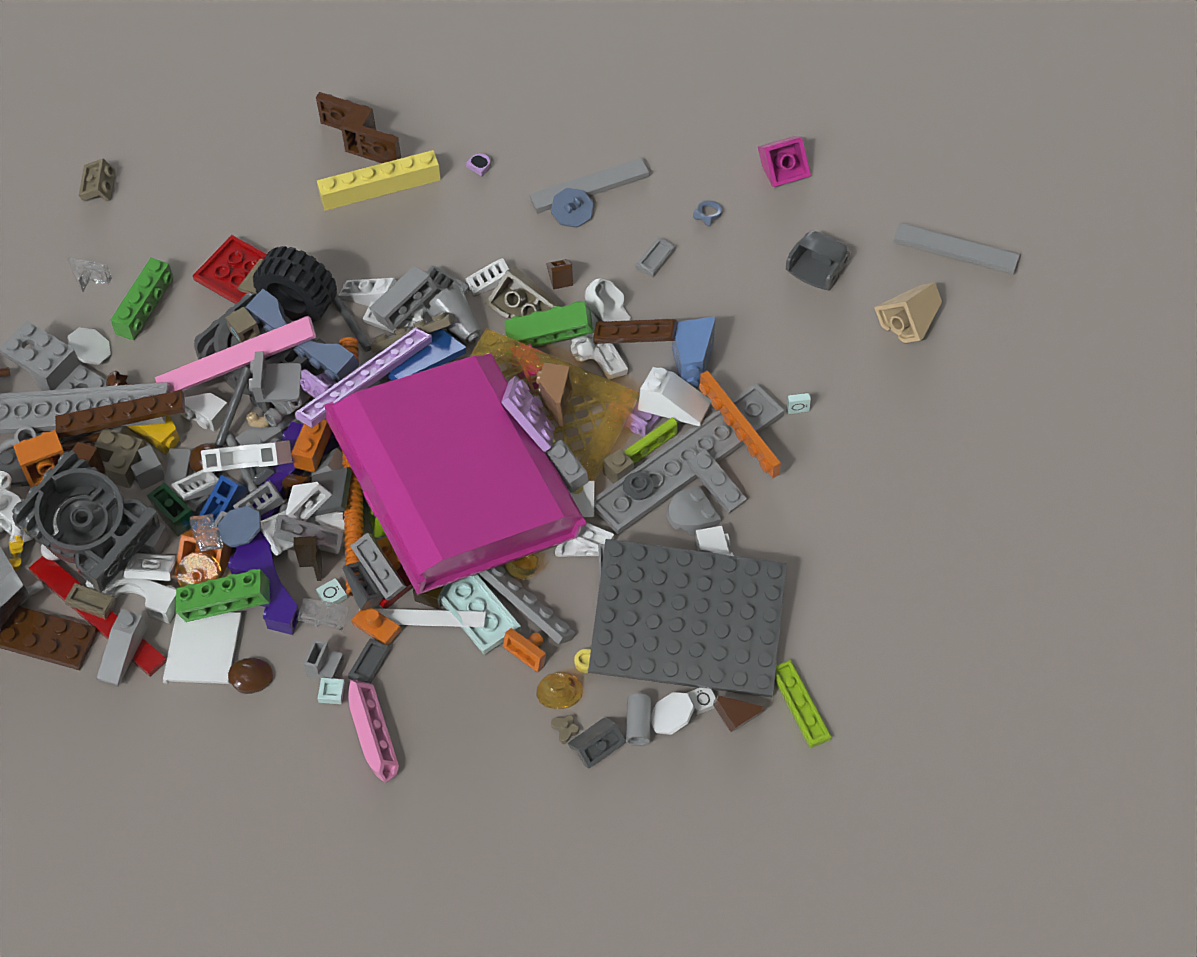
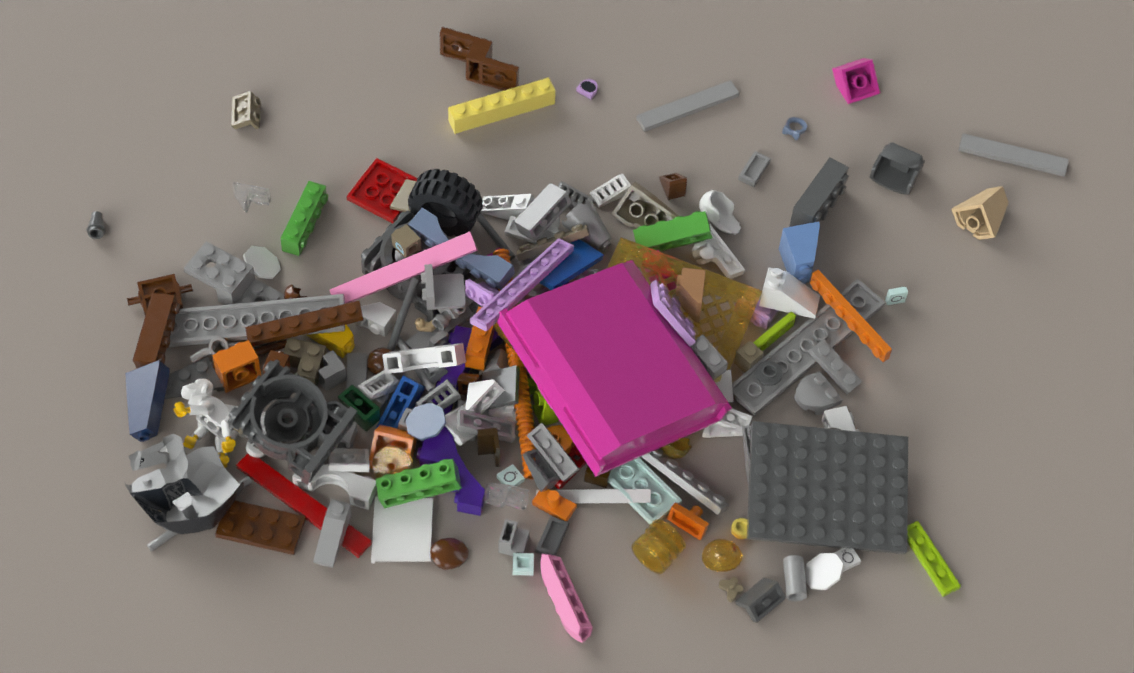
camera: 10 degrees left, 0 degrees up
(90, 601) = (297, 492): dark tan tile -> none
(205, 532) = (396, 428): clear slope -> none
(484, 676) = (658, 546): none -> clear yellow wheel
(572, 207) = (675, 126): sand blue piece -> none
(635, 331) = (750, 236): reddish brown tile -> none
(724, 286) = (821, 194): none -> dark grey brick
(736, 712) = (877, 568): reddish brown slope -> none

